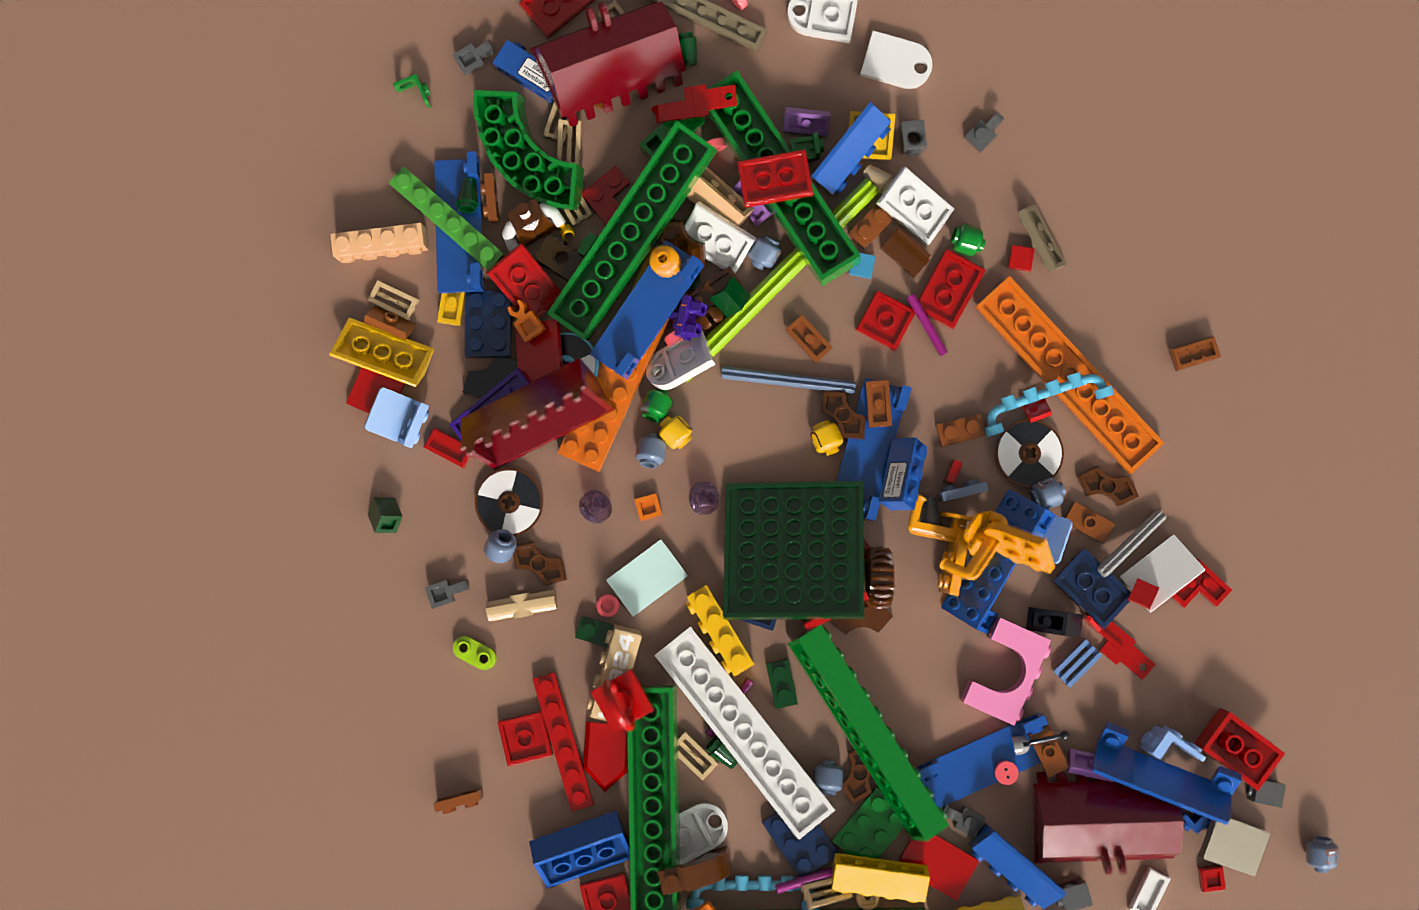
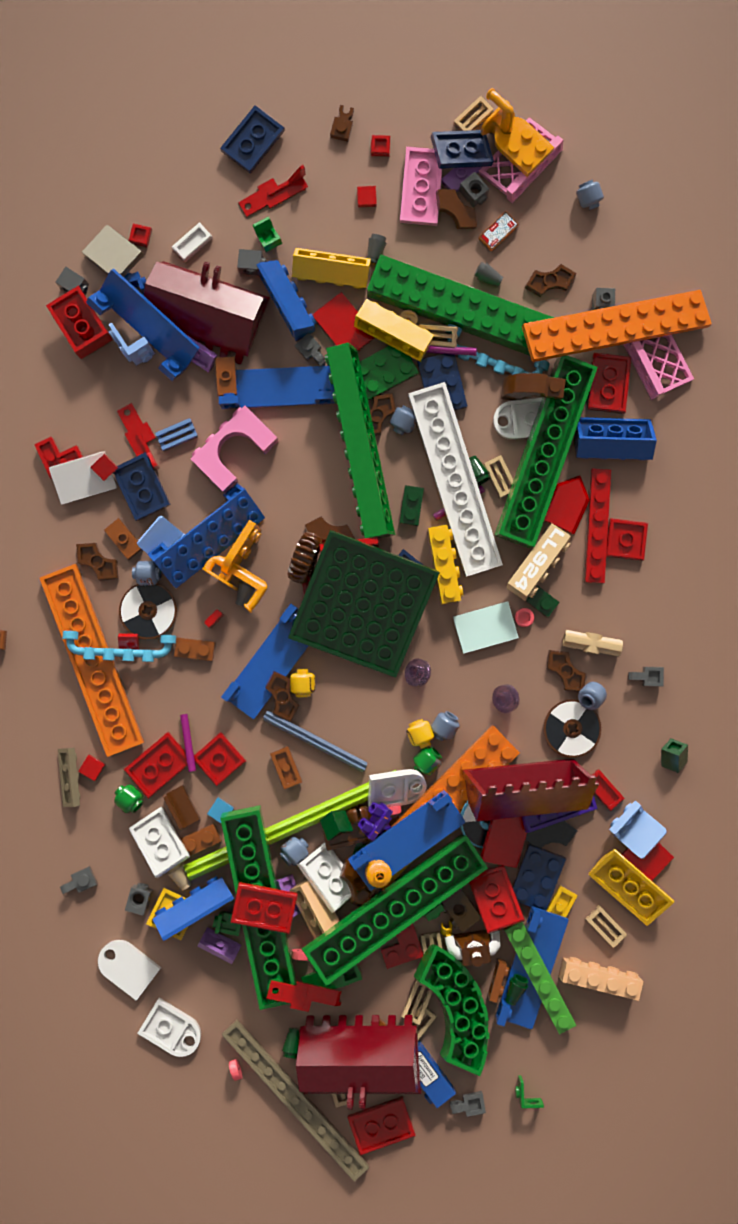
camera: 165 degrees left, 0 degrees up
(389, 322) = (615, 909): dark orange plate -> none
(450, 803) = (703, 511): dark orange plate -> none
(474, 652) = (642, 620): lime plate -> none
(528, 323) = (505, 866): orange plate -> none
(622, 701) = (541, 538): red tile -> none
(648, 507) = (463, 682): orange tile -> none
(878, 403) = (251, 694): dark orange plate -> none
(903, 473) = (254, 631): blue brick -> none
(971, 487) = (204, 600): sand blue plate -> none
(990, 533) = (210, 555): light orange plate -> none
(1006, 772) = (265, 372): coral tile -> none
(1022, 744) = (244, 388): hinge -> none
(1054, 622) = (181, 472): black slope -> none
(1131, 543) = (97, 510): light grey axle -> none
(1322, 854) = (49, 221): sand blue head -> none

